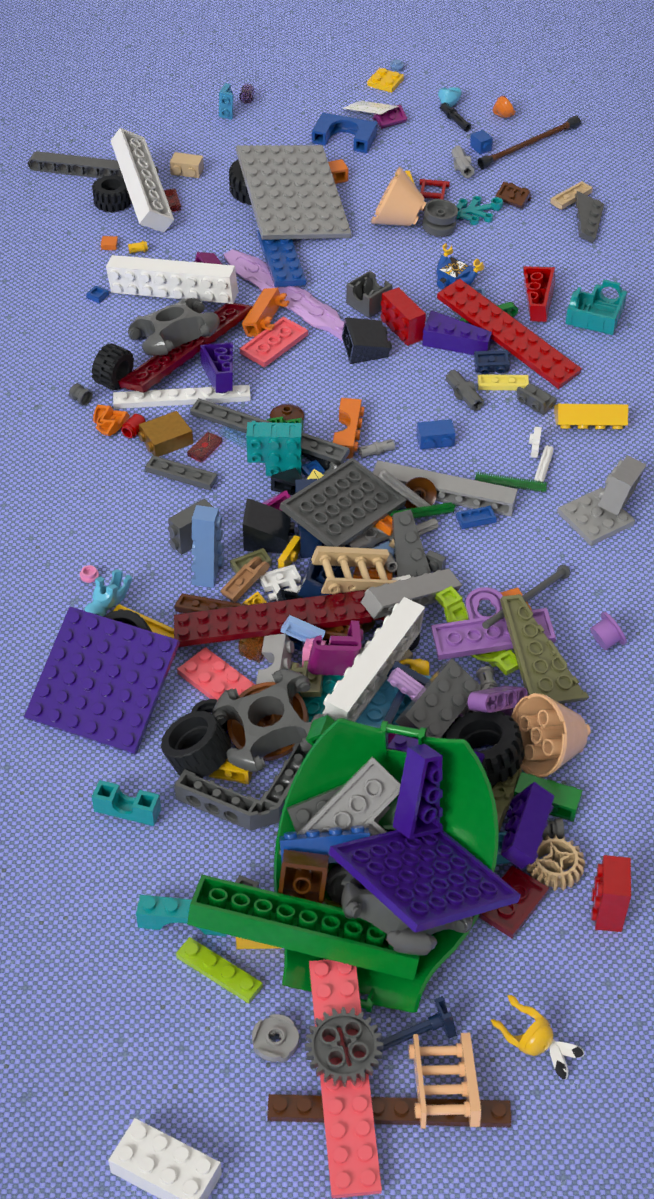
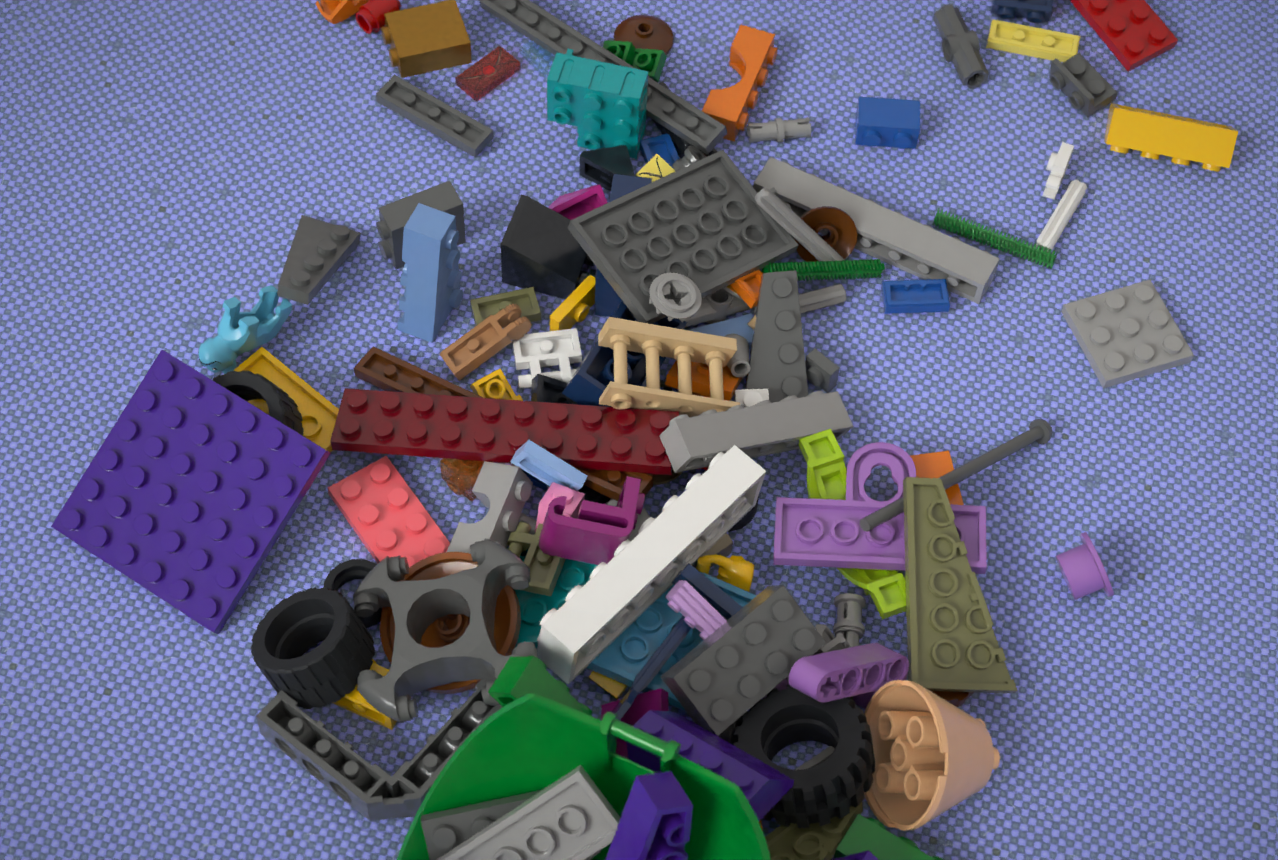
camera: 10 degrees right, 10 degrees up
(89, 574) = (230, 278): bright pink plate -> none
(111, 801) = (190, 741): teal arch -> none
(136, 553) = (314, 258): none -> dark grey wing
(349, 527) = (682, 288): none -> light grey gear
(621, 484) = (1183, 286): light grey brick -> none

